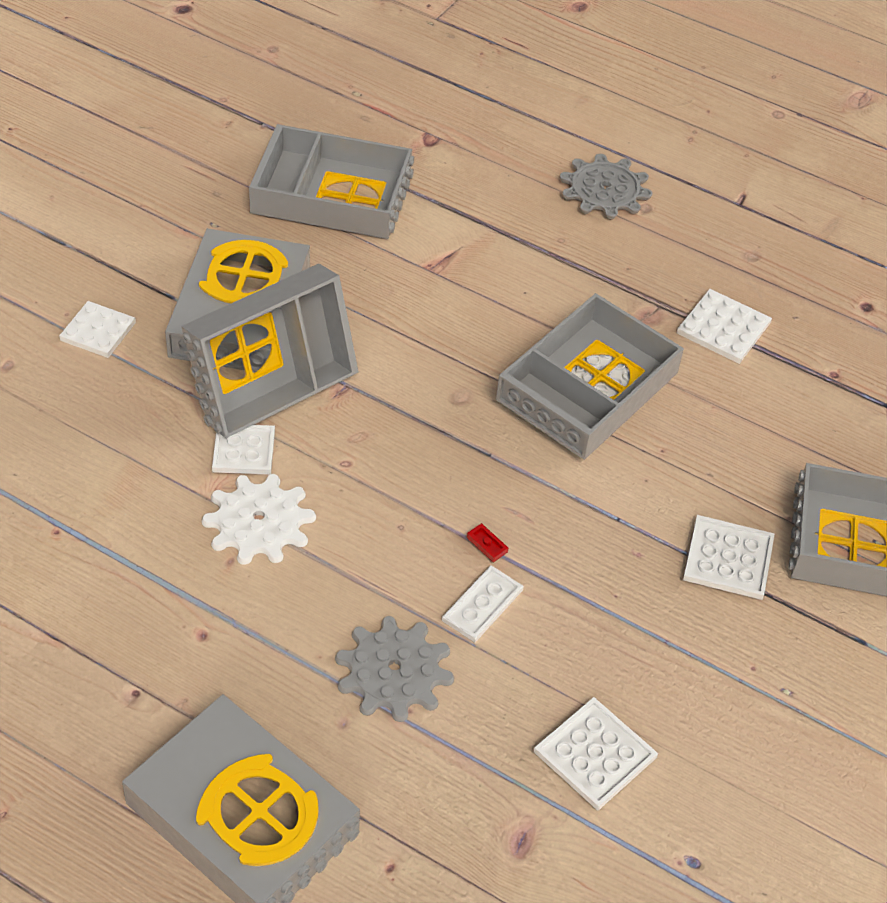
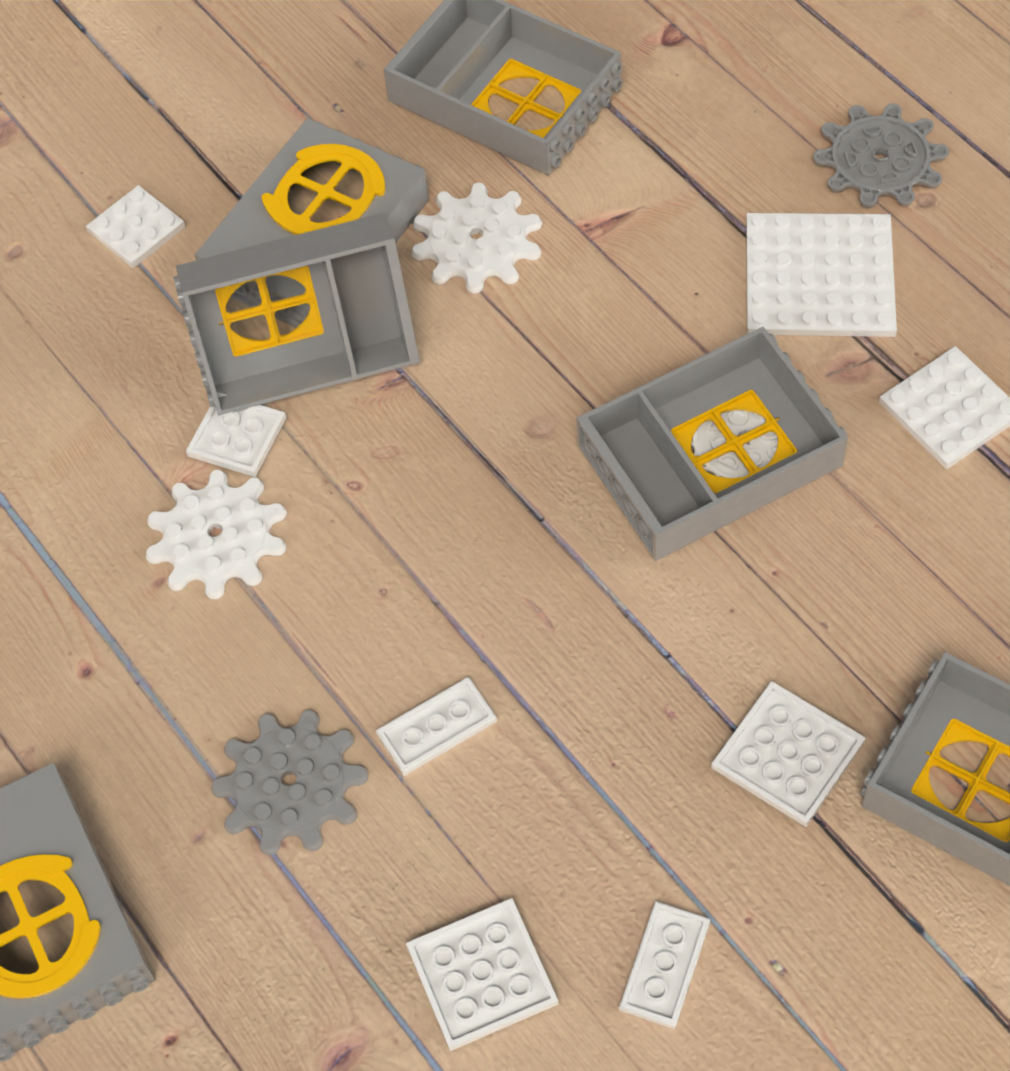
camera: 30 degrees right, 10 degrees up
(374, 282) = (476, 259): none -> white plate
(487, 542) = (477, 644): red plate -> none
(601, 261) = (820, 274): none -> white plate
(714, 712) = (664, 965): none -> white tile

